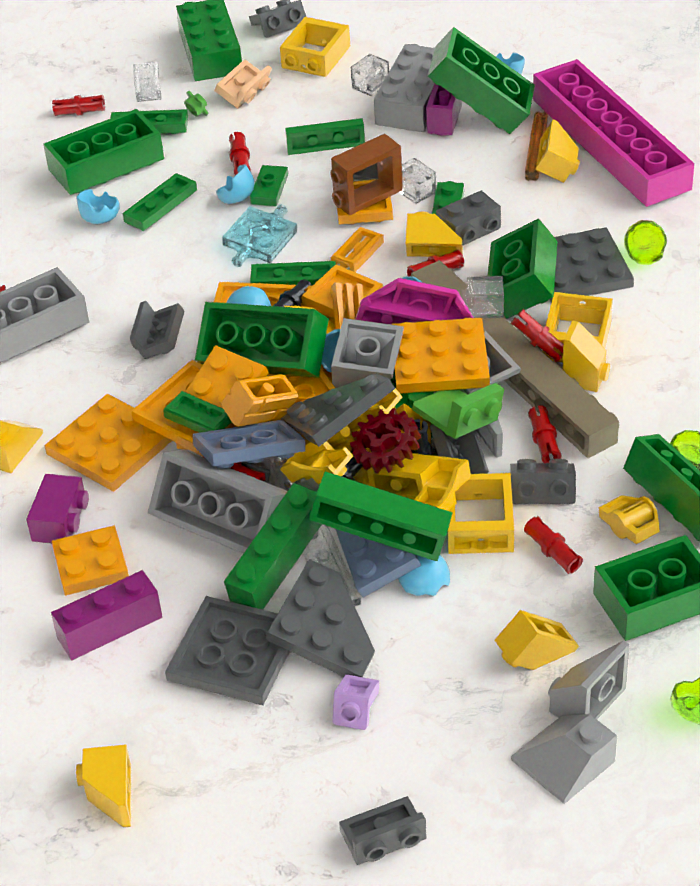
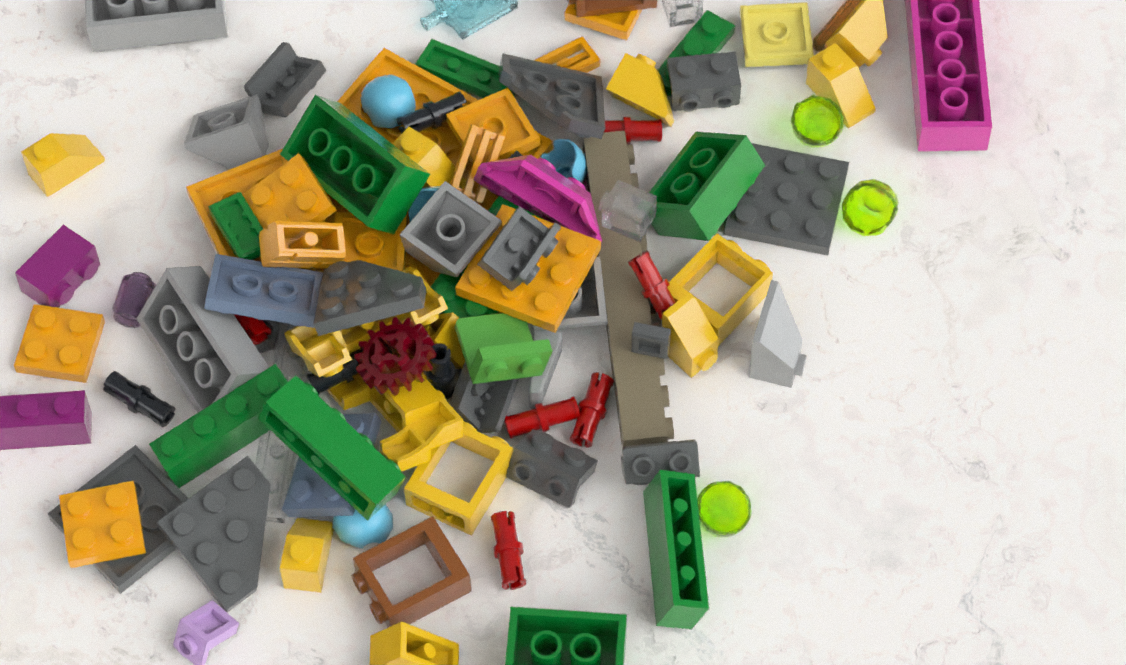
camera: 25 degrees right, 15 degrees up
(106, 443) = (152, 206): light orange plate -> none
(134, 504) = (131, 298): none -> clear purple brick
(138, 371) = (229, 133): none -> light grey slope
(184, 567) = (139, 399): none -> black pin
(219, 657) = (102, 524): none -> light orange plate
(374, 256) = (560, 93): none -> dark grey plate
(400, 614) = (306, 554): none -> yellow slope
(433, 336) = (518, 248): none -> dark grey bracket
(497, 177) = (776, 34): none -> light yellow plate
(499, 564) = (455, 585): none -> dark orange window
(513, 451) = (542, 417): none -> red pin
(563, 363) = (650, 340): none -> dark grey tile
(564, 187) = (837, 77): none -> yellow slope
(567, 212) = (817, 121): none -> clear neon green hair
(618, 439) = (644, 461): none -> dark grey bracket
(627, 514) = (608, 557): yellow piece -> none
(646, 338) = (776, 342): none -> slope

